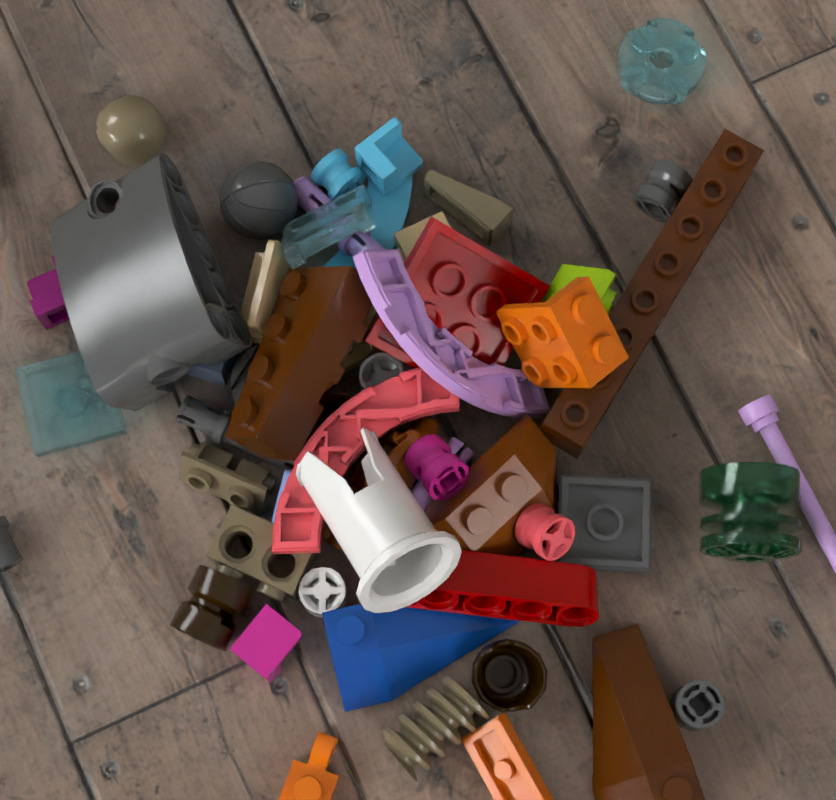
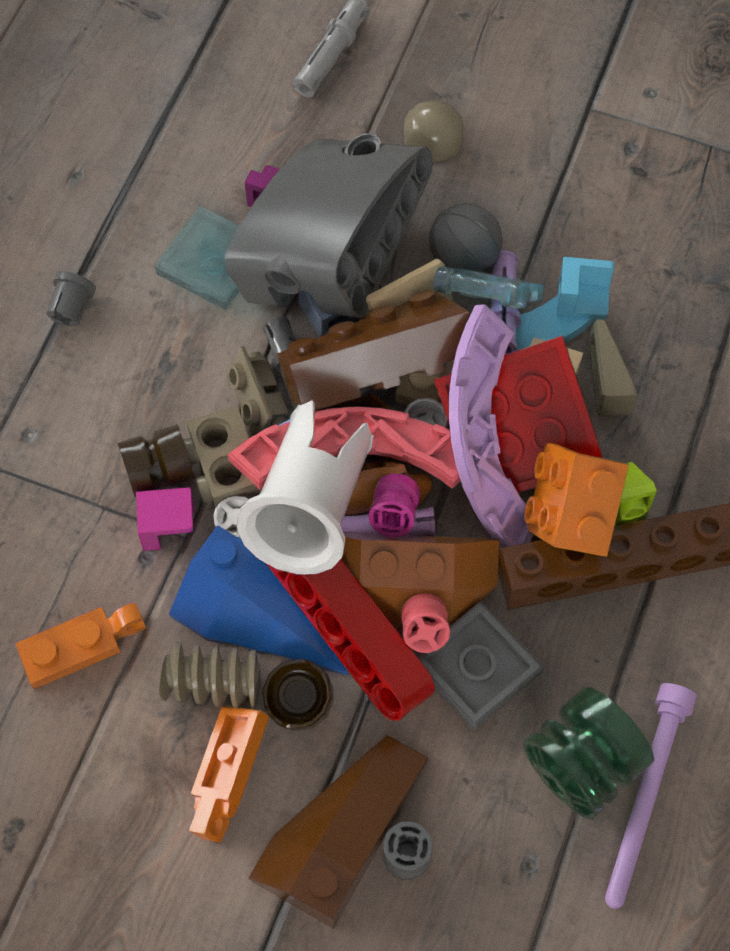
camera: 45 degrees right, 10 degrees down
(337, 174) = (540, 267): medium azure wheel -> none

